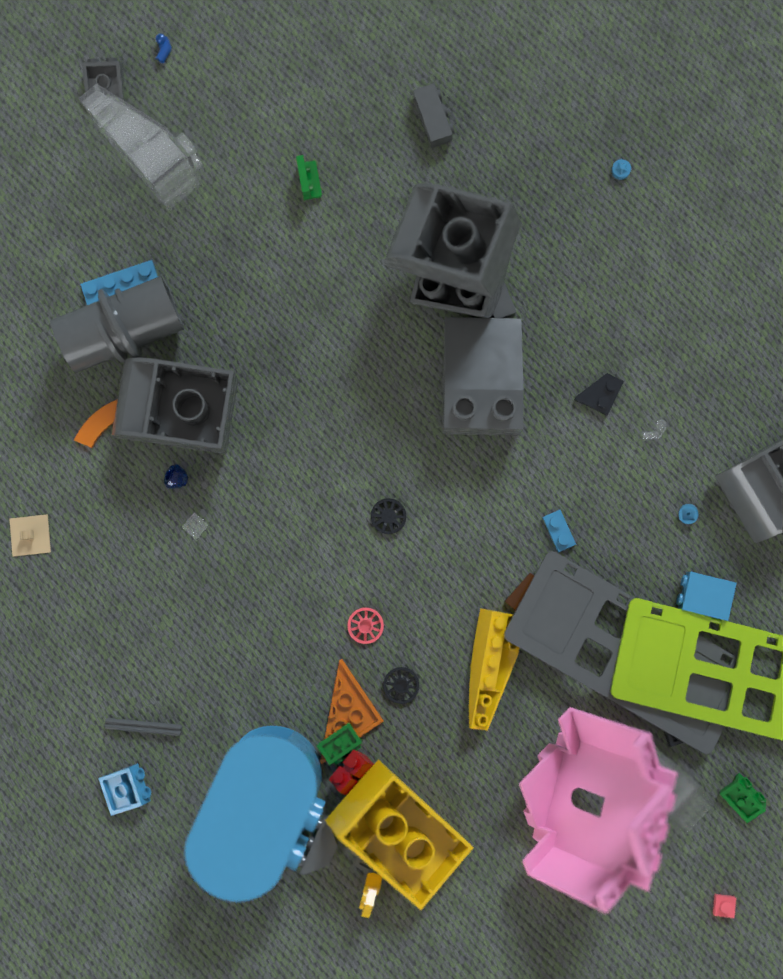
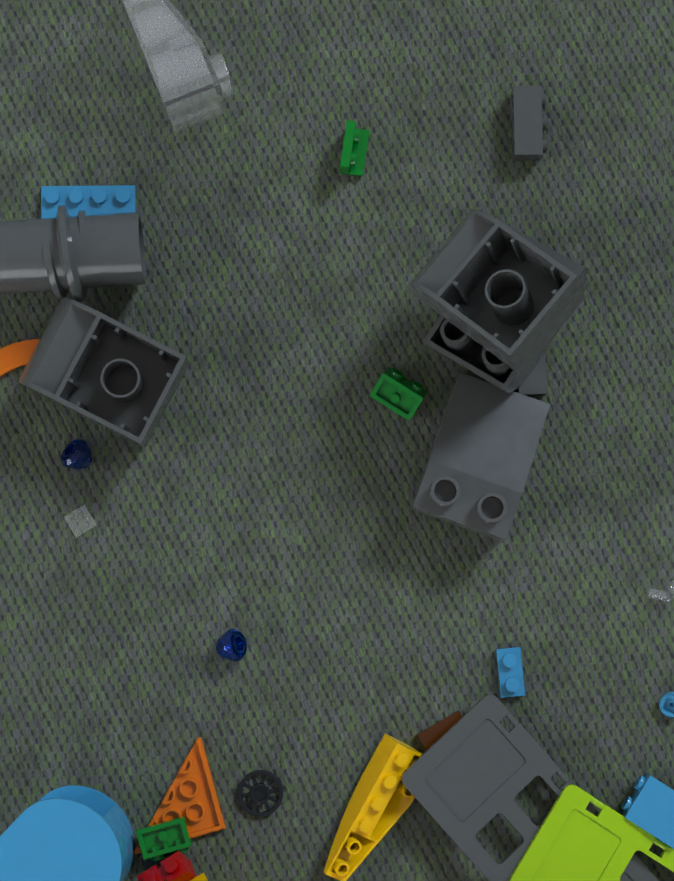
camera: 15 degrees right, 0 degrees up
(342, 581) = (232, 645): none -> clear blue cone
(365, 625) = (242, 707): coral wheel -> none
(388, 516) = (313, 586): black wheel -> none
(404, 349) = (398, 393): none -> green bracket
(601, 394) = (616, 525): black wing -> none

